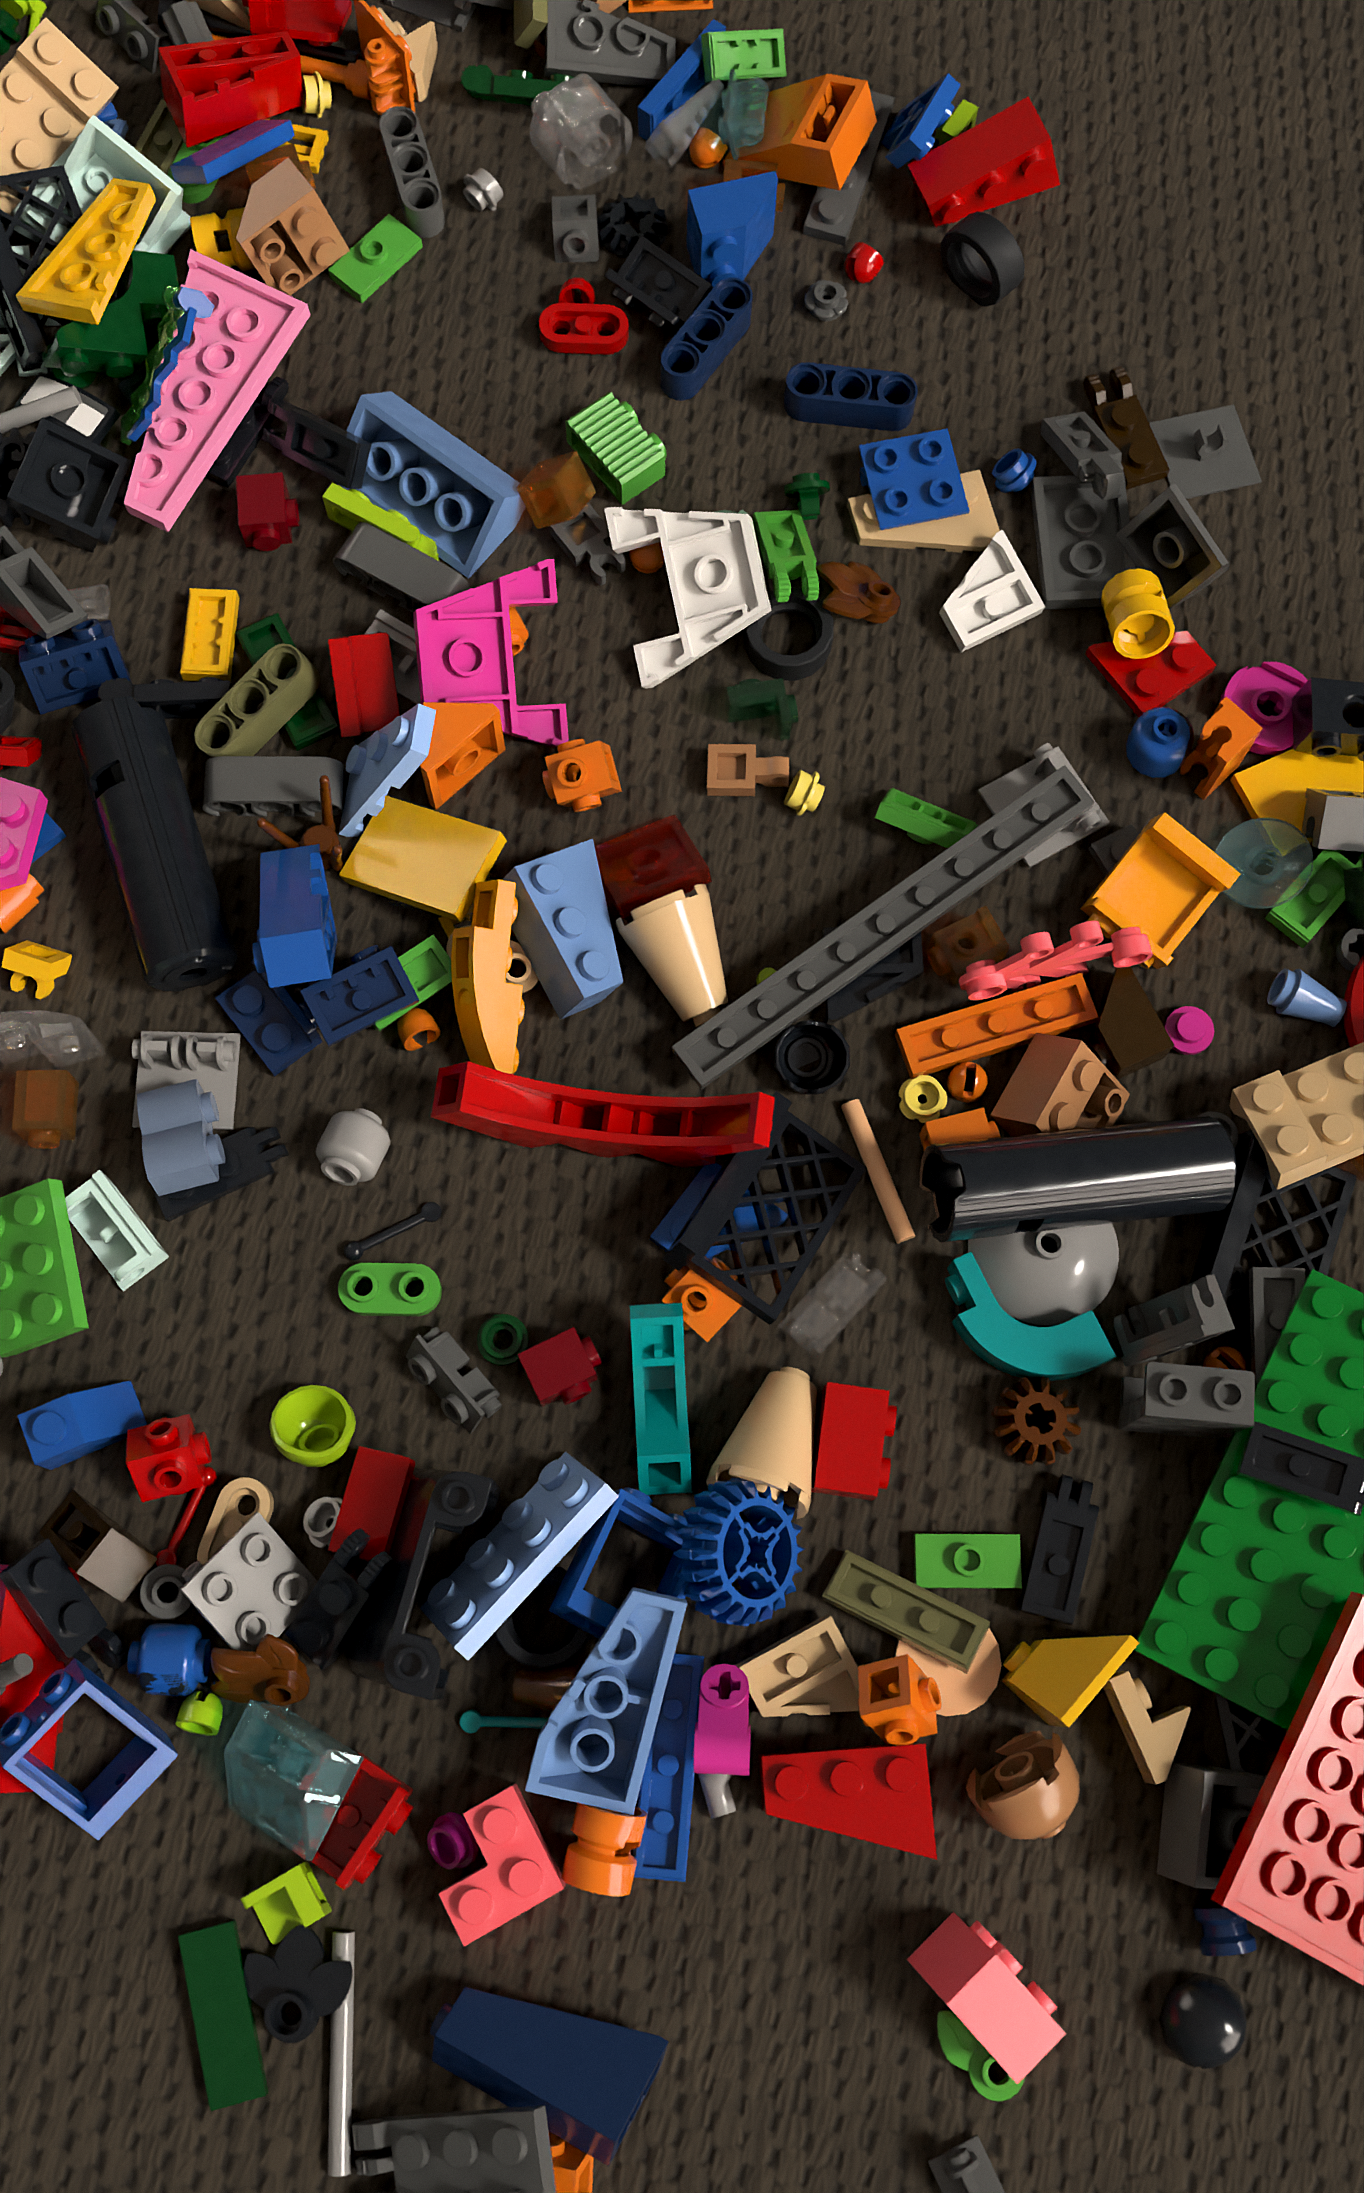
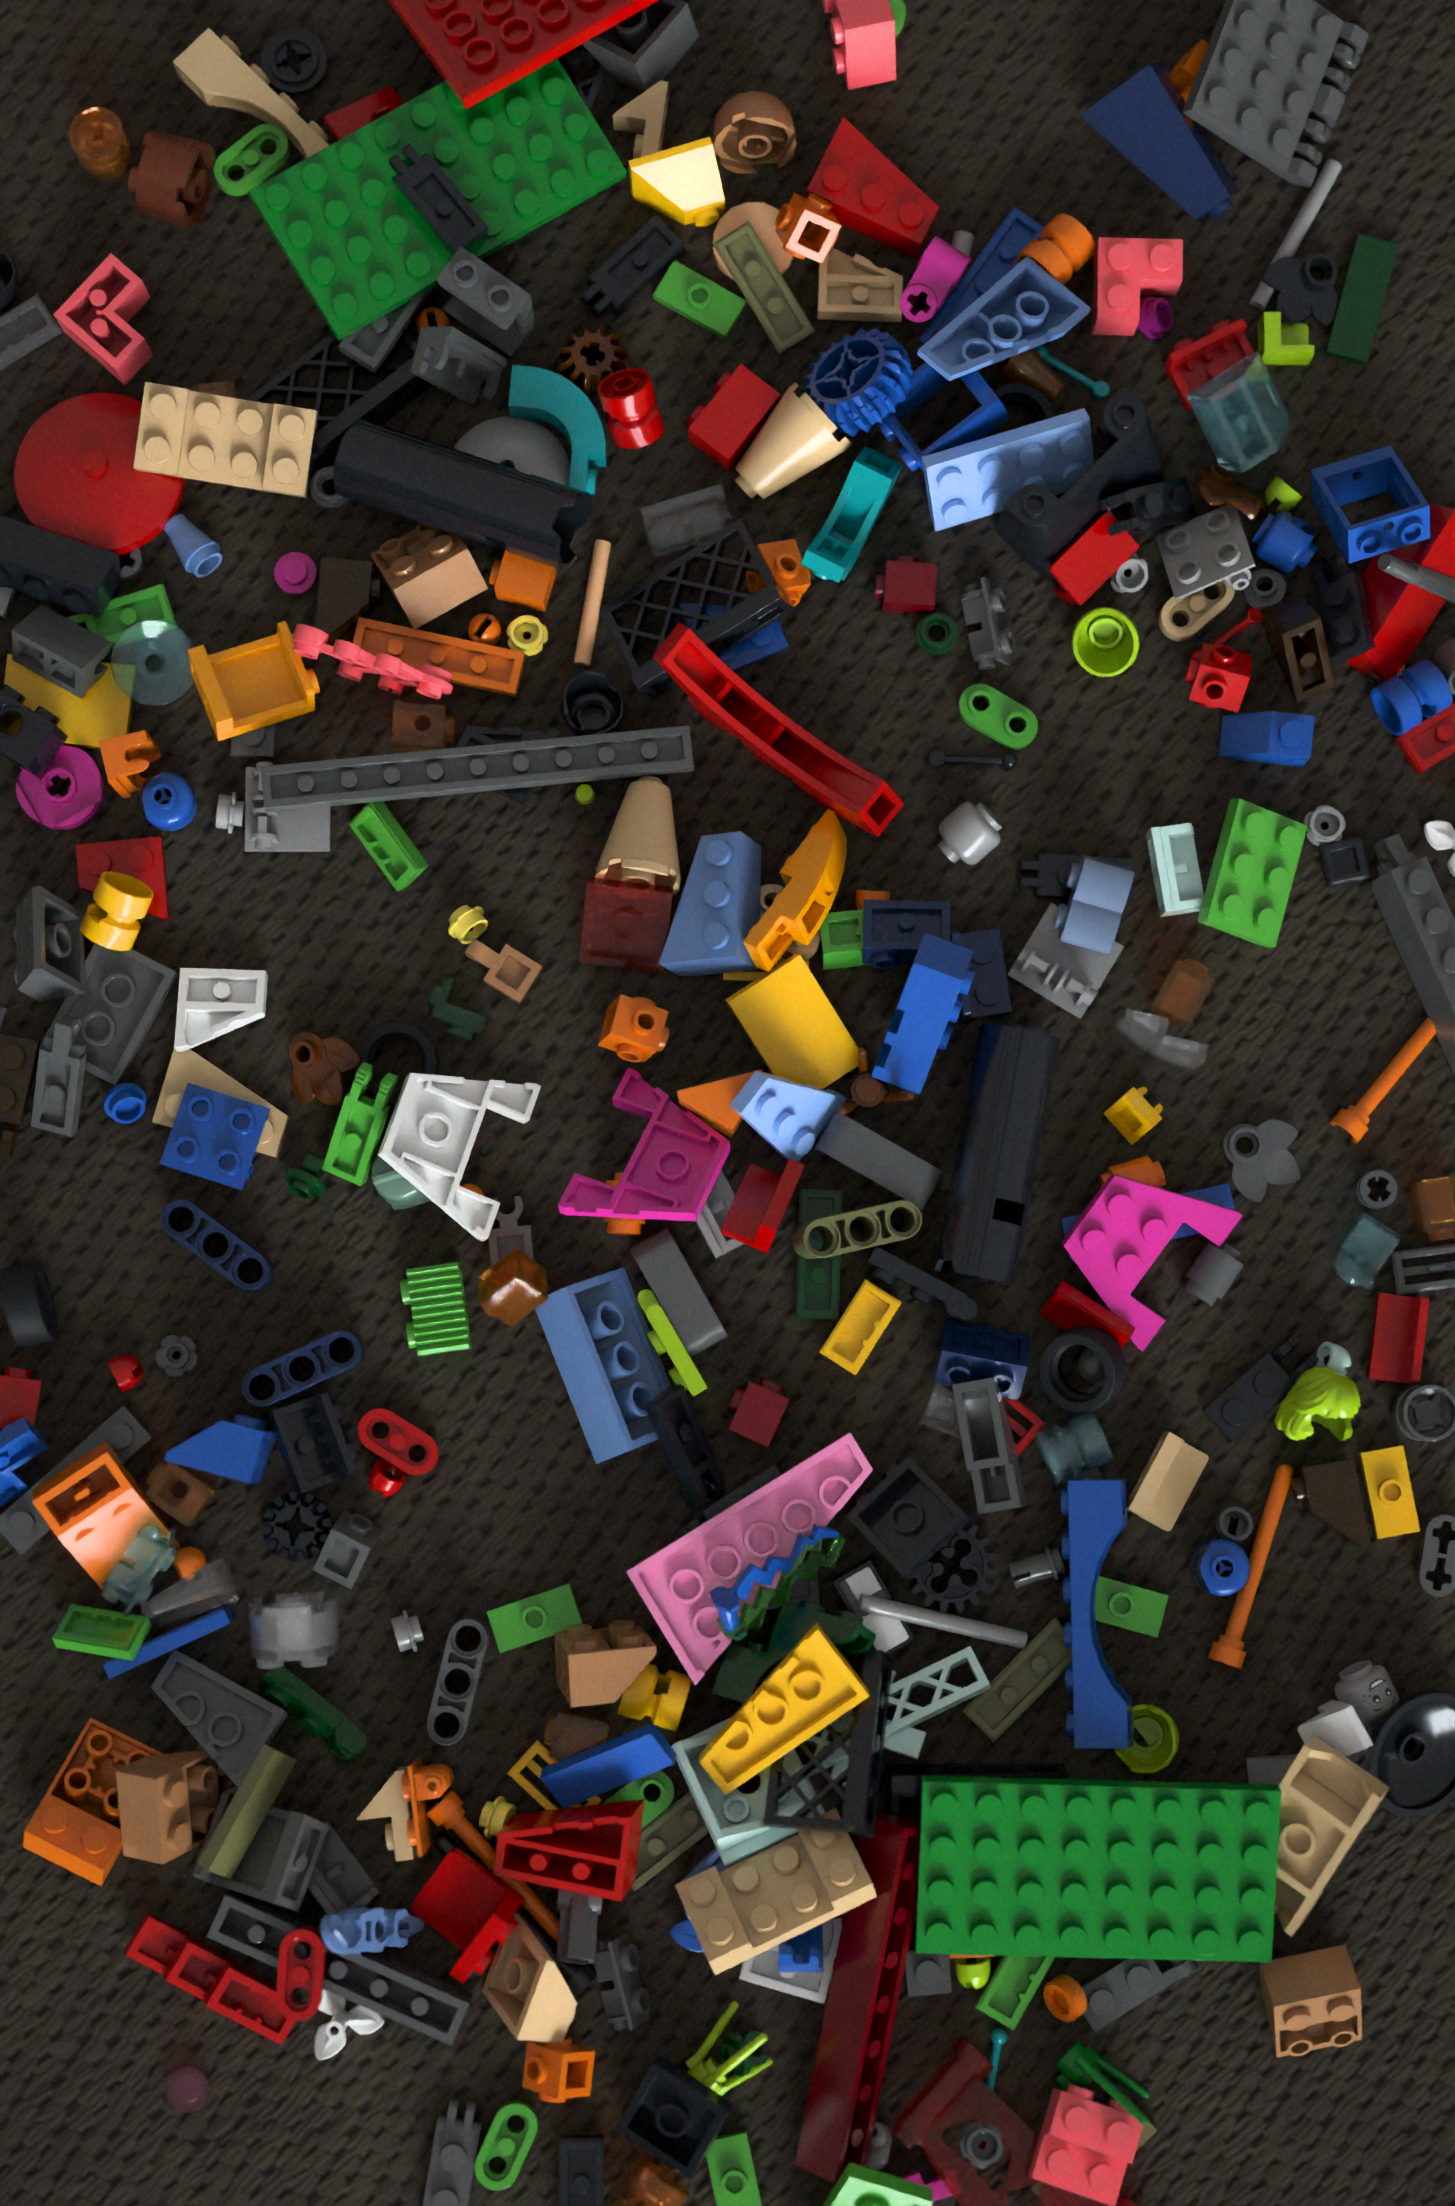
camera: 150 degrees left, 10 degrees up
(963, 1383) = (633, 413): none -> red wheel
(1096, 770) = (229, 812): none -> light grey plate

